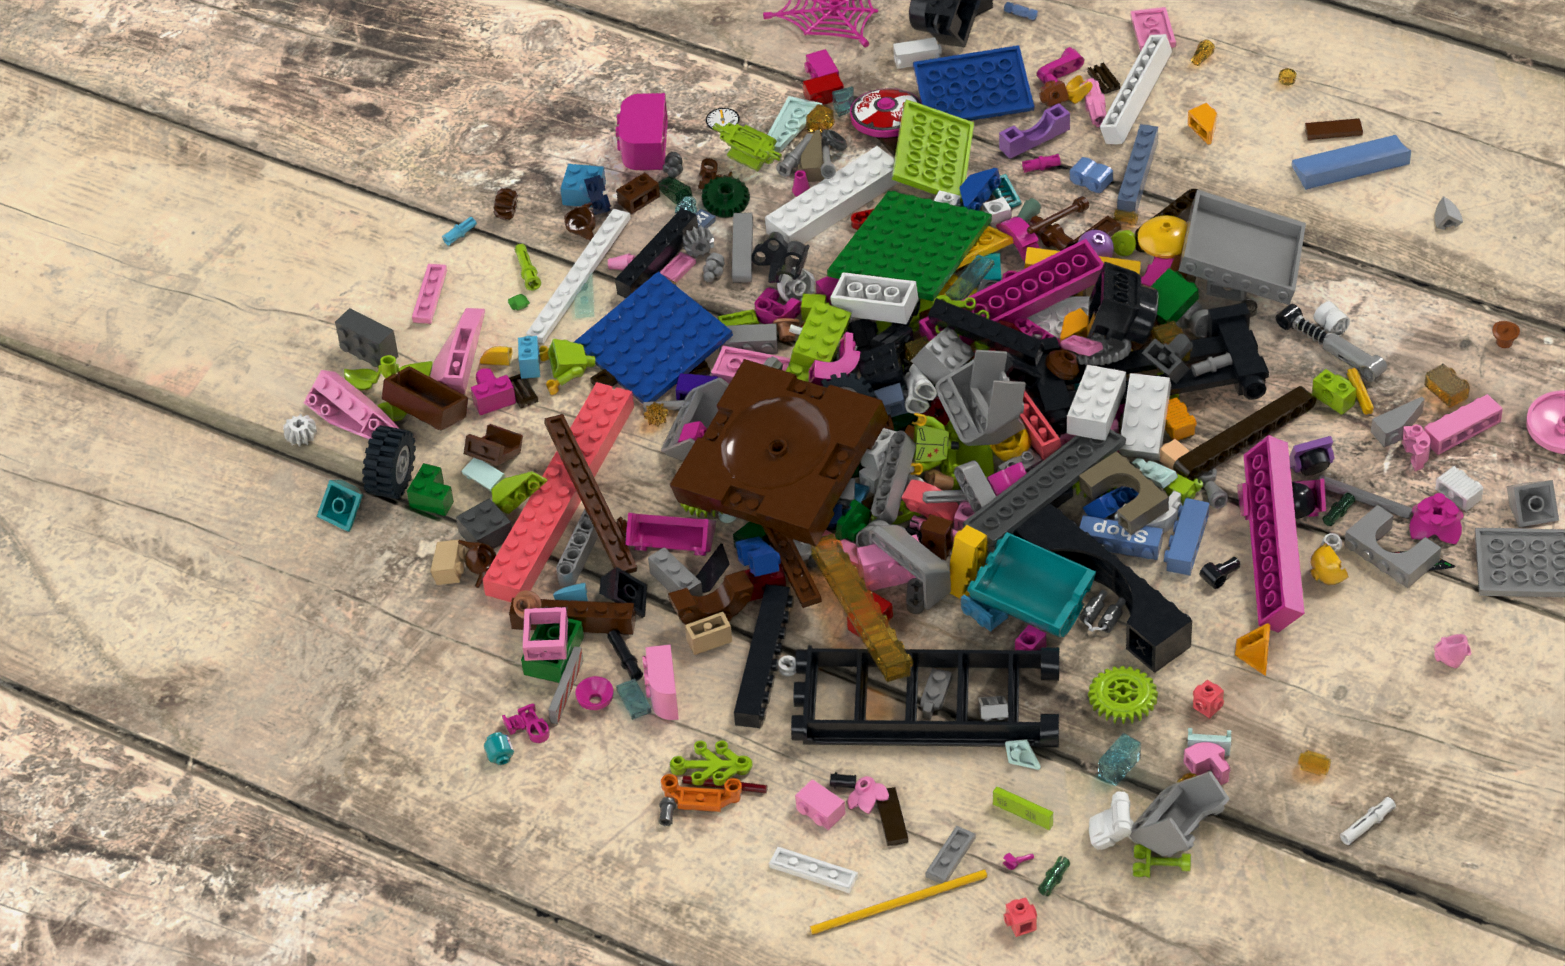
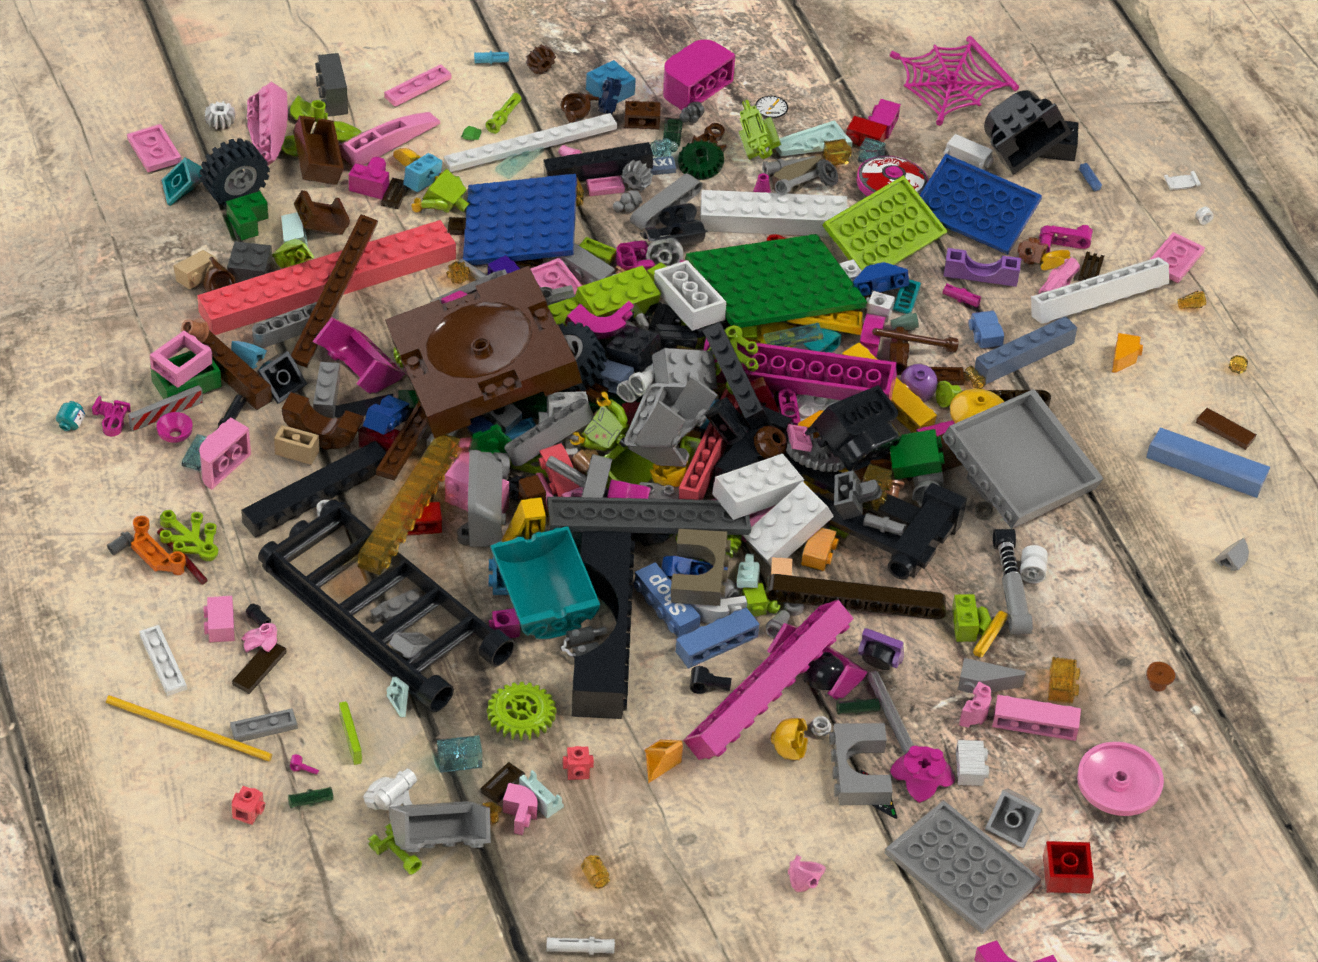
camera: 35 degrees right, 0 degrees up
(279, 495) = (154, 148): none -> bright pink plate
(1170, 756) = (497, 785): none -> dark brown tile

